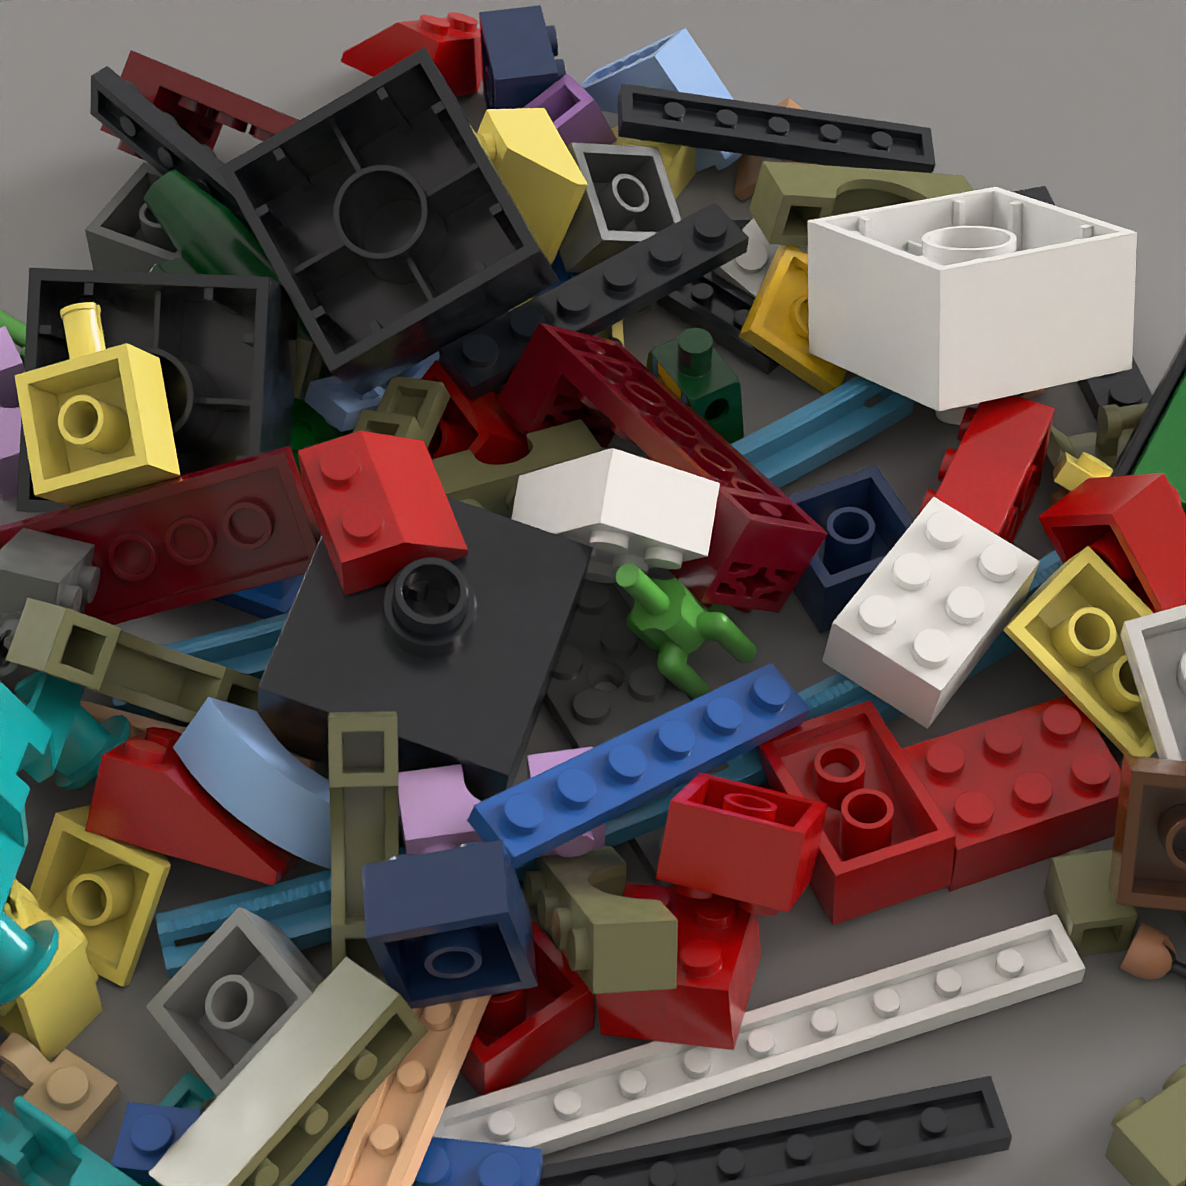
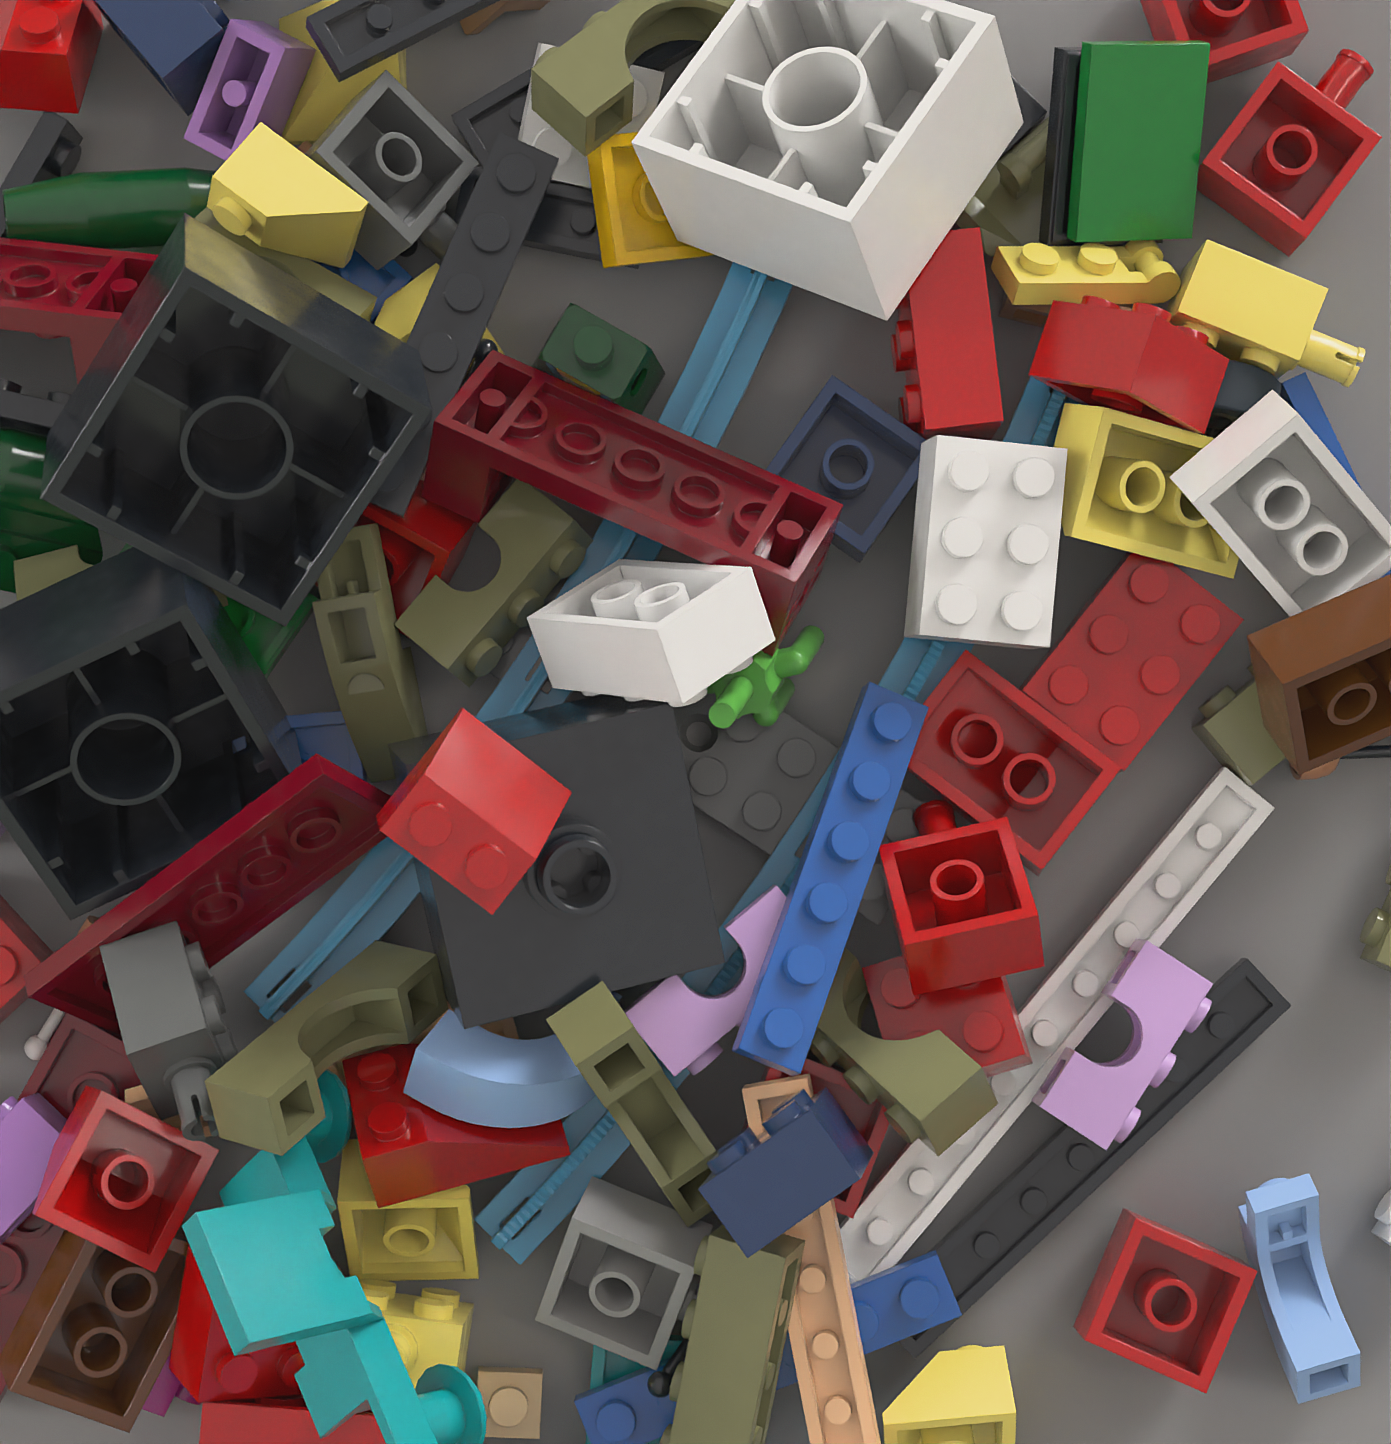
camera: 30 degrees left, 35 degrees up
(95, 418) = (110, 833): light yellow brick -> none
(782, 1095) = (1161, 1003): none -> lavender arch

